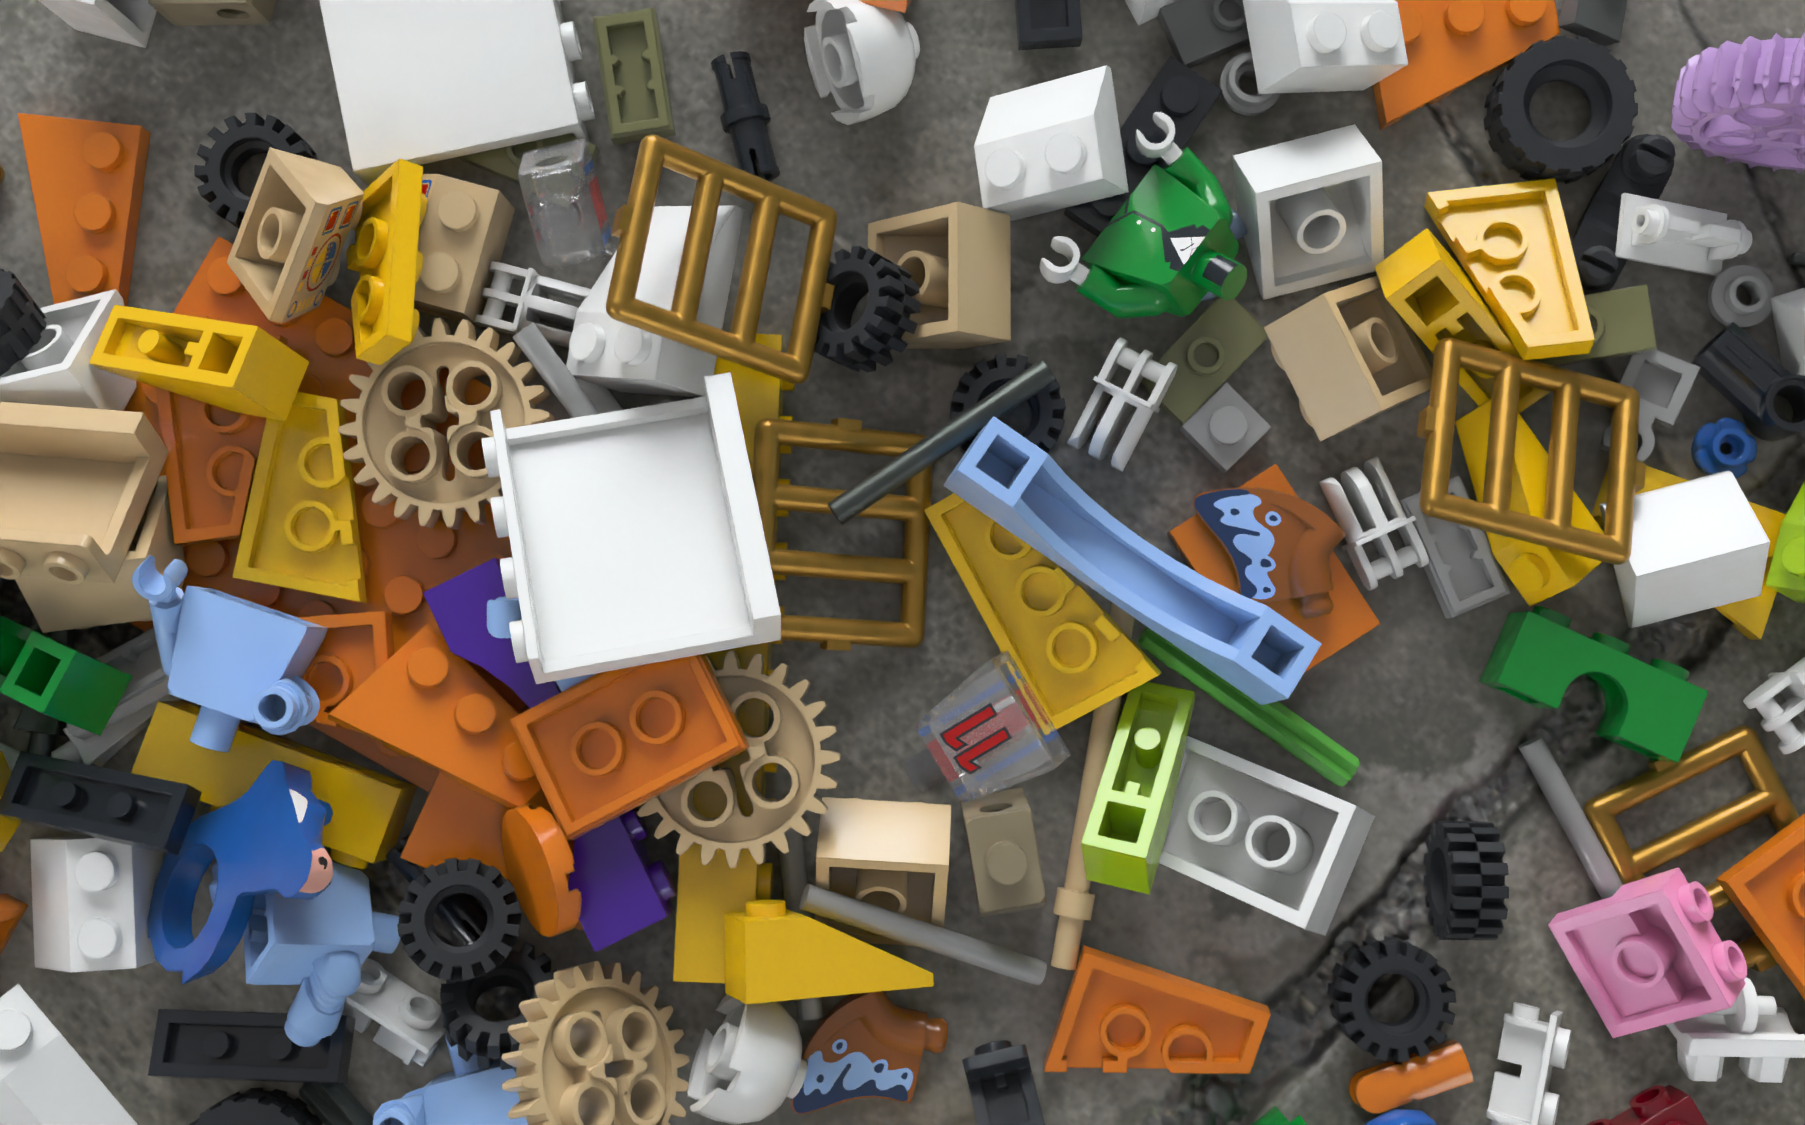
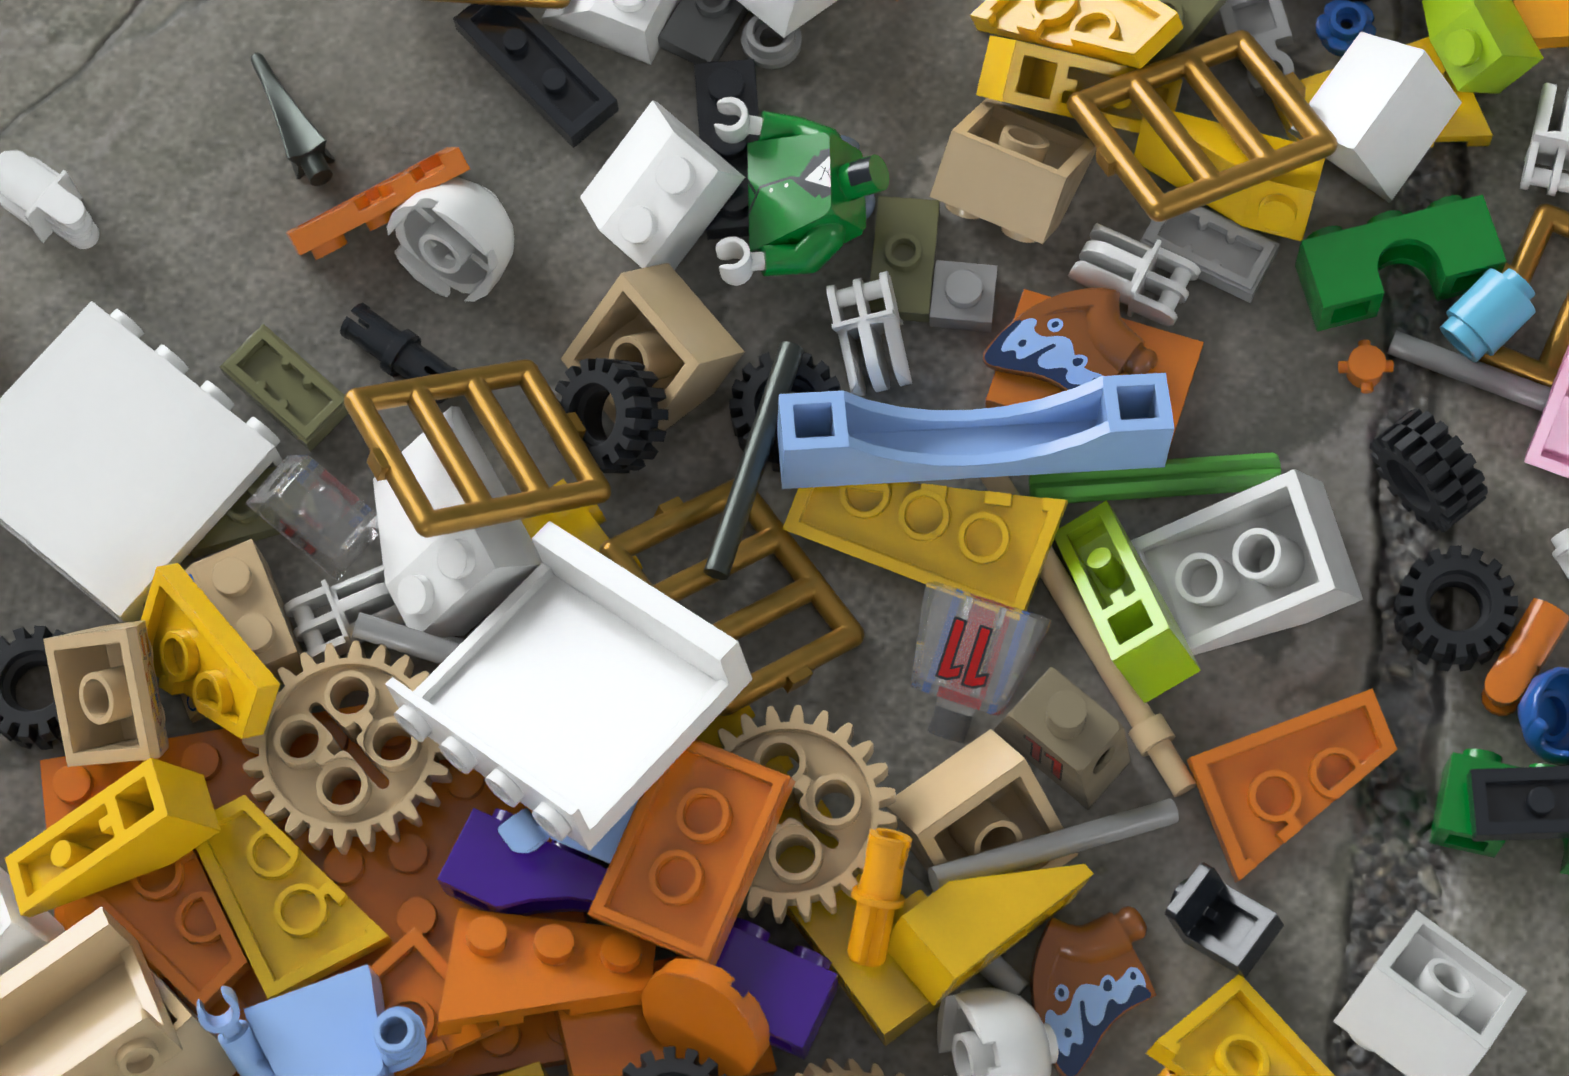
camera: 35 degrees left, 15 degrees down
(744, 887) = (878, 896): none -> light orange axle
(1311, 210) = (894, 90): white slope -> none
(1491, 745) = (1365, 366): none -> orange piece
(1626, 791) = (1489, 314): none -> medium azure brick

